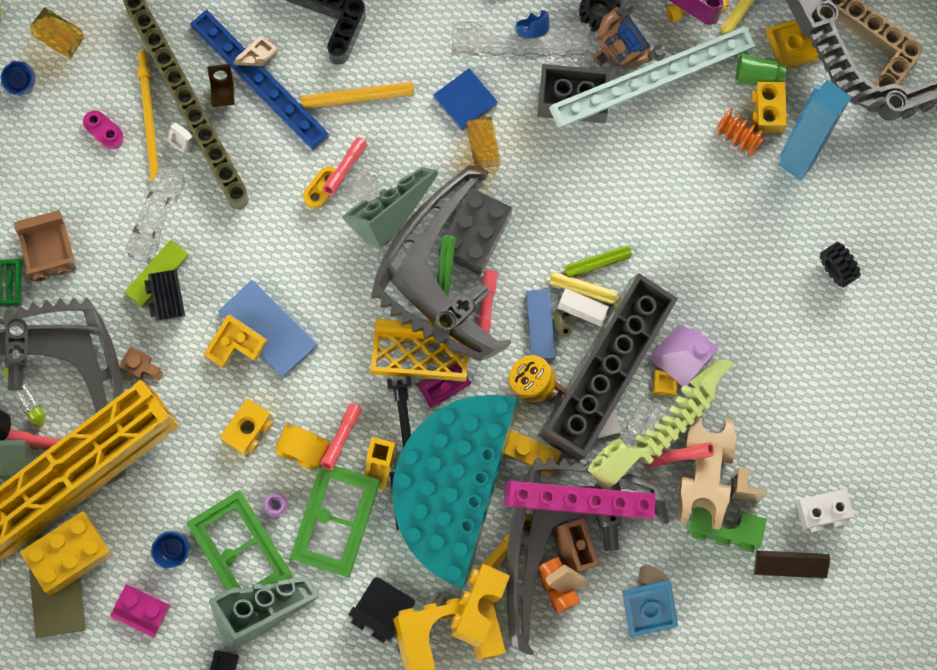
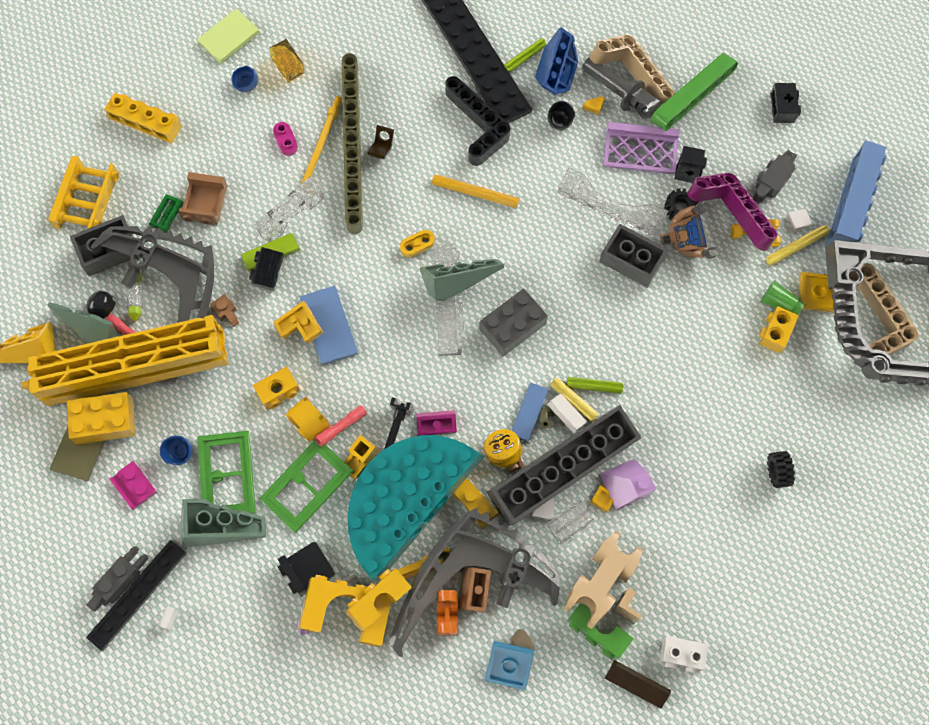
camera: 25 degrees right, 5 degrees down
(180, 138) = (334, 166): white tile -> none
(257, 53) = (418, 132): tan tile -> none
(260, 81) = (411, 152): blue tile -> none
(273, 498) = (269, 448): lavender plate -> none
(338, 176) = (449, 230): coral piece -> none
(399, 334) = (437, 379): yellow fence -> none
(422, 290) = (451, 342): dark grey piece -> none
(446, 263) = (471, 347): bright green axle -> none
(465, 99) = (552, 227): blue tile -> none
(483, 142) = (549, 262): clear yellow piece -> none
(484, 318) = (502, 370): coral piece -> none
(533, 26) = (626, 196): blue hair -> none
(566, 579) = (454, 611): tan tile -> none
(579, 500) = (492, 554): dark pink brick -> none
(619, 458) = (537, 536): yellowish green piece -> none
(651, 77) = (697, 267): light aqua plate -> none
(692, 452) = (598, 559): coral piece -> none
(740, 133) = (746, 338): orange piece -> none
(813, 128) = (805, 351): dark azure brick -> none

